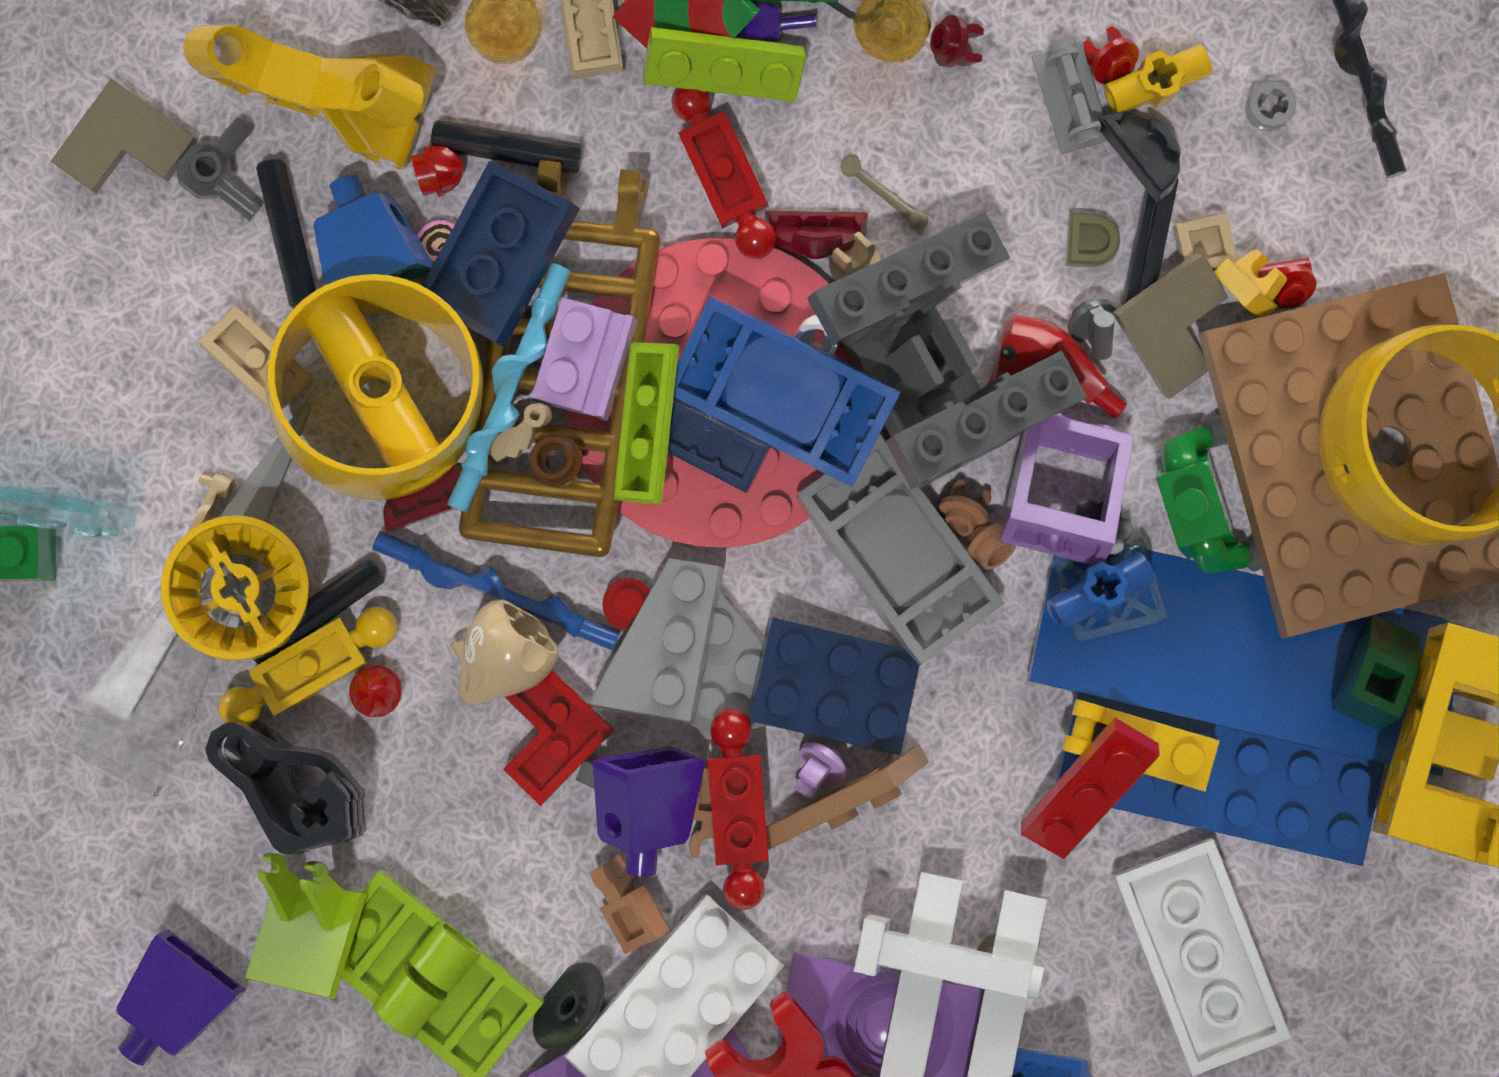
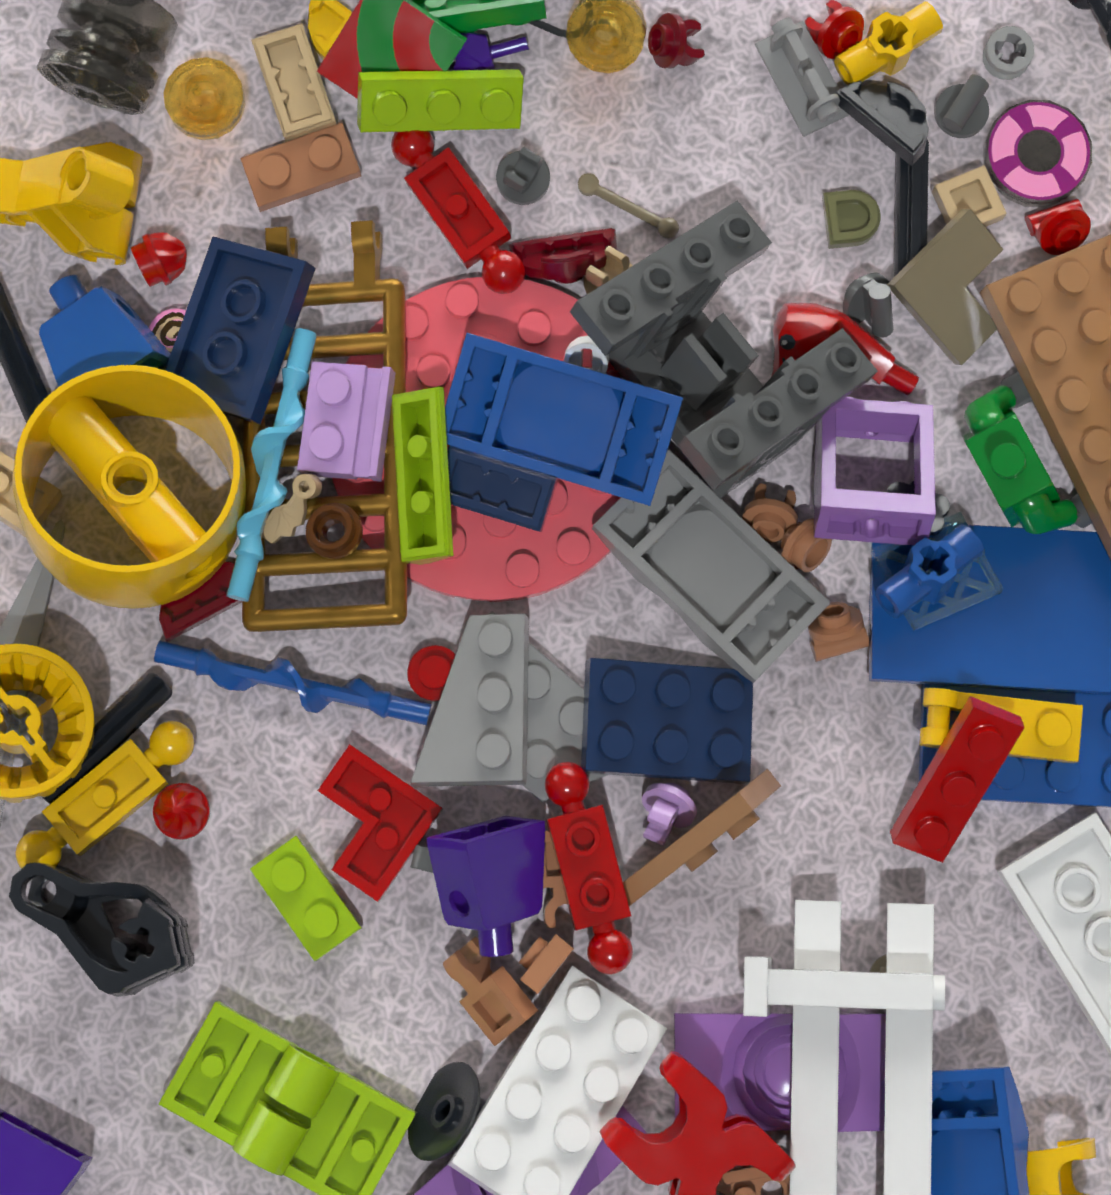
camera: 15 degrees left, 5 degrees down
(304, 930) = (145, 1077): lime plate -> none
(476, 790) = (305, 898): none -> lime plate
(503, 653) = (310, 745): tan piece -> none
(506, 145) = (227, 221): black axle -> none
(583, 104) = (301, 167): none -> nougat plate
(682, 886) = (543, 961): none -> nougat plate
(790, 149) = (523, 177): none -> dark grey plate
(1006, 629) = (837, 631): none -> nougat plate
(1217, 153) = (963, 108): none -> dark grey plate
(1244, 282) = (1026, 238): yellow tile -> none
(1280, 207) = (1037, 153): none -> tile

